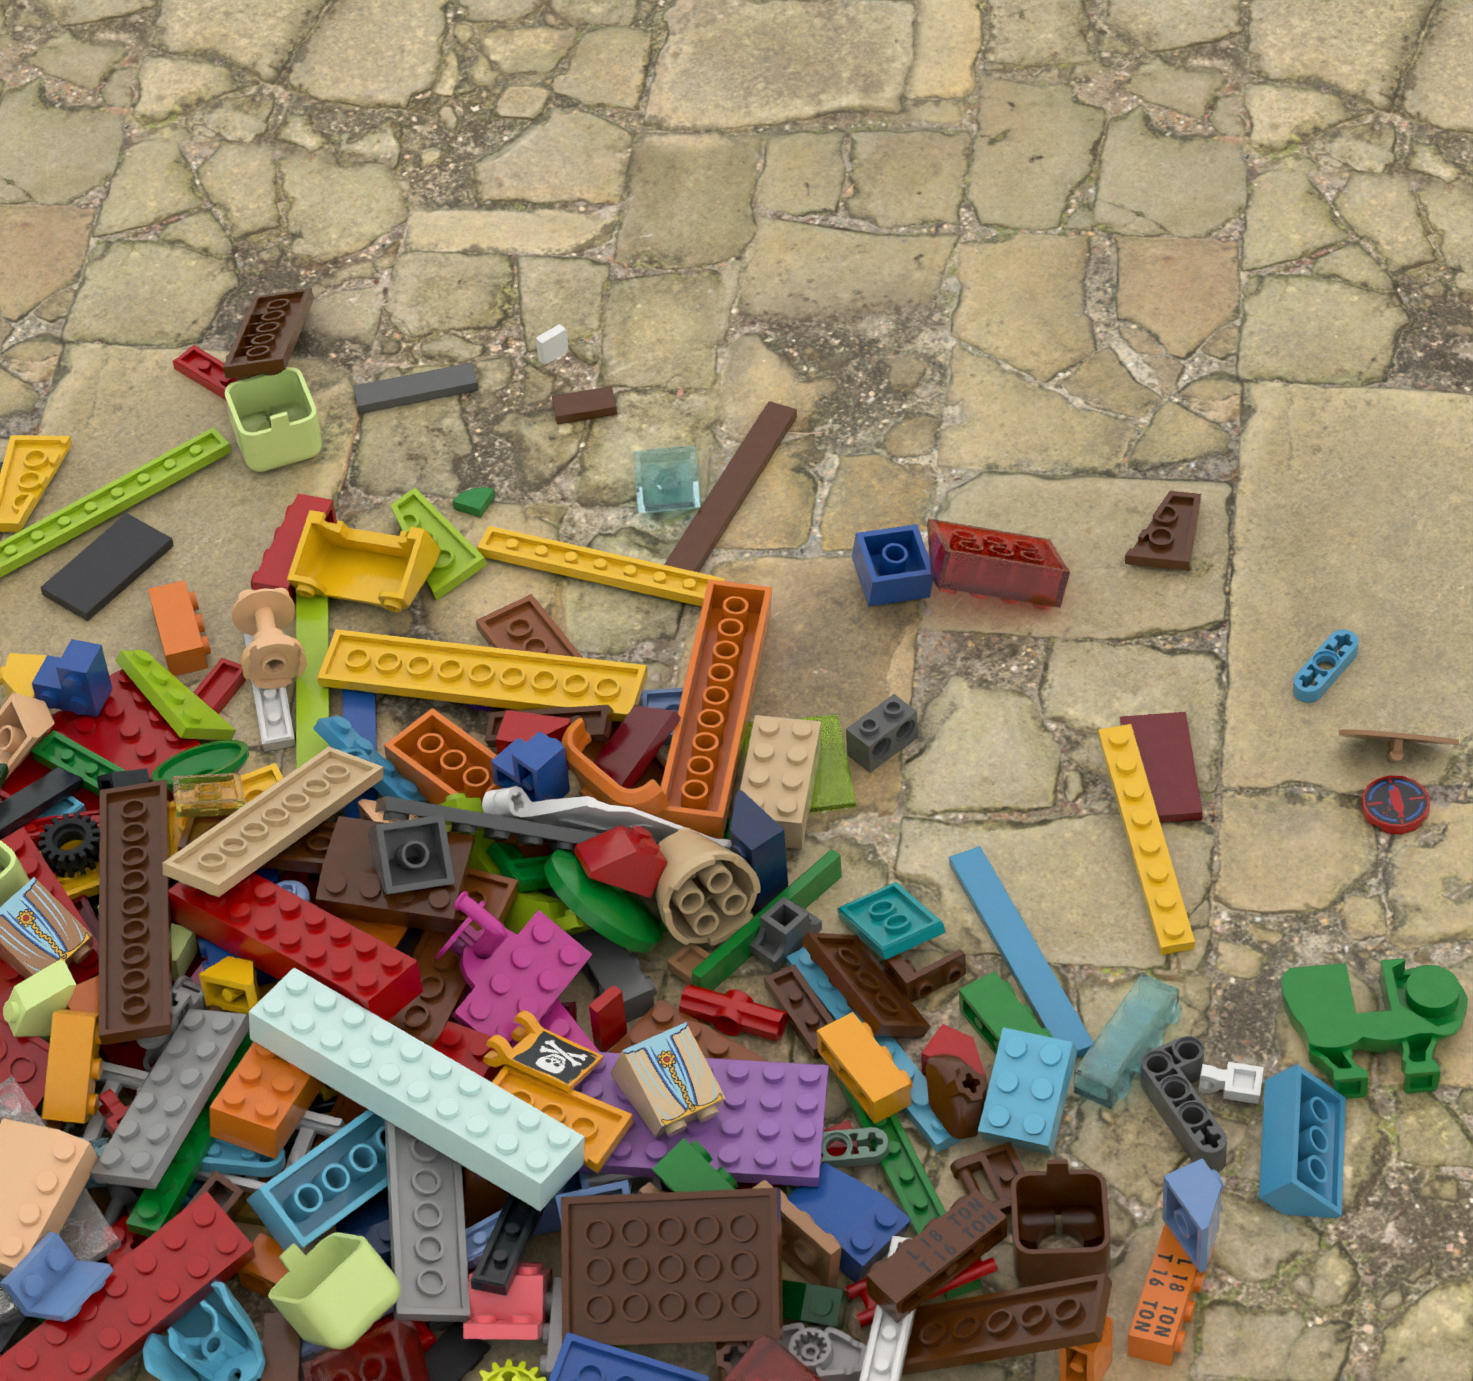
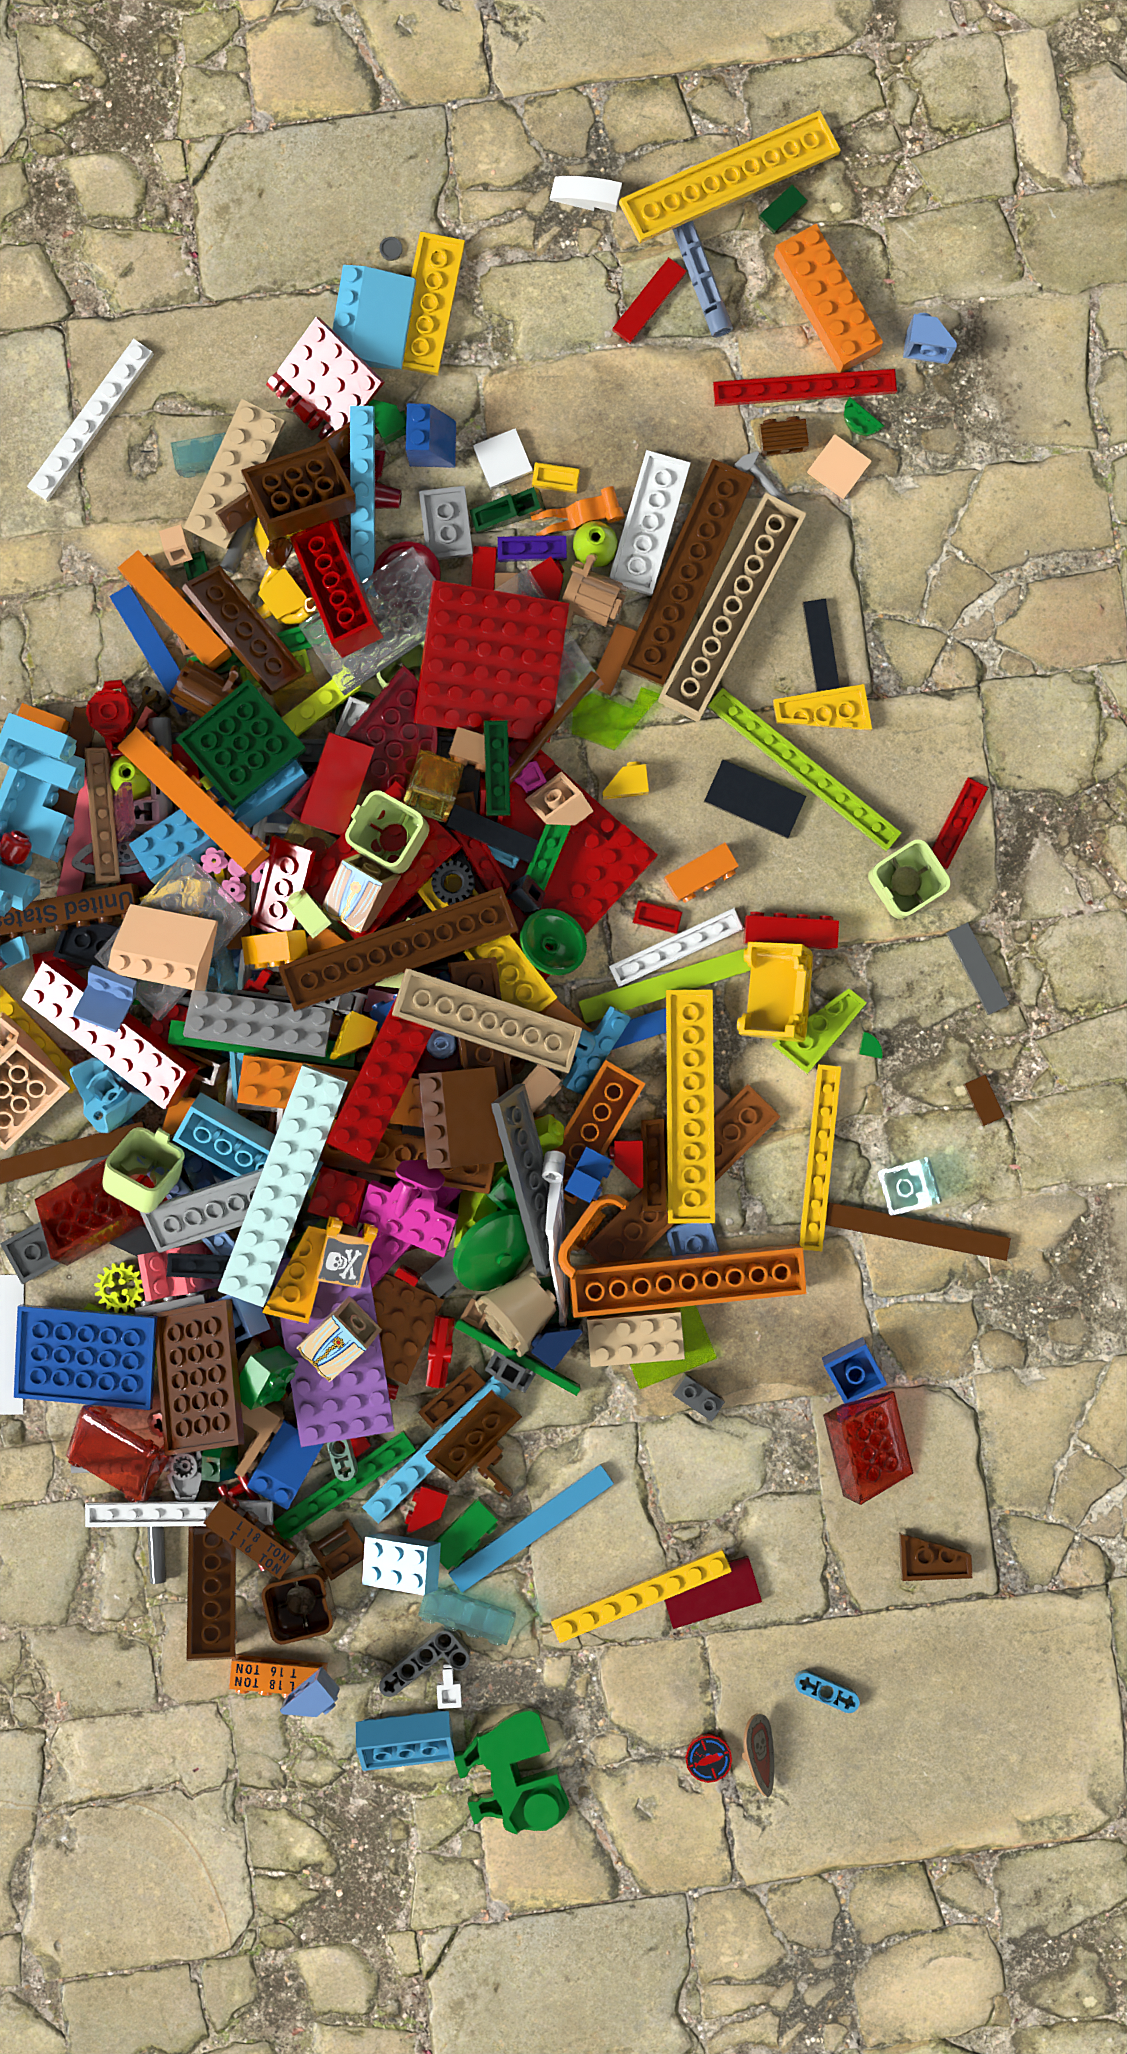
camera: 70 degrees right, 40 degrees up
(75, 681) = (615, 823): blue brick -> none
(173, 700) = (627, 894): lime wing -> none
(207, 794) = (506, 965): clear yellow plate -> none
(268, 334) = (992, 848): reddish brown plate -> none
(272, 655) = (682, 950): light nougat piece -> none
(411, 854) = (459, 1131): dark grey slope -> none
(552, 344) = (1038, 1060): white tile -> none
(623, 859) = (513, 1262): red slope -> none
(636, 743) = (633, 1233): dark red tile -> none
(864, 1067) = (401, 1453): light orange brick -> none
(891, 920) = (532, 1440): teal tile -> none
(955, 1094) = (389, 1517): reddish brown piece -> none

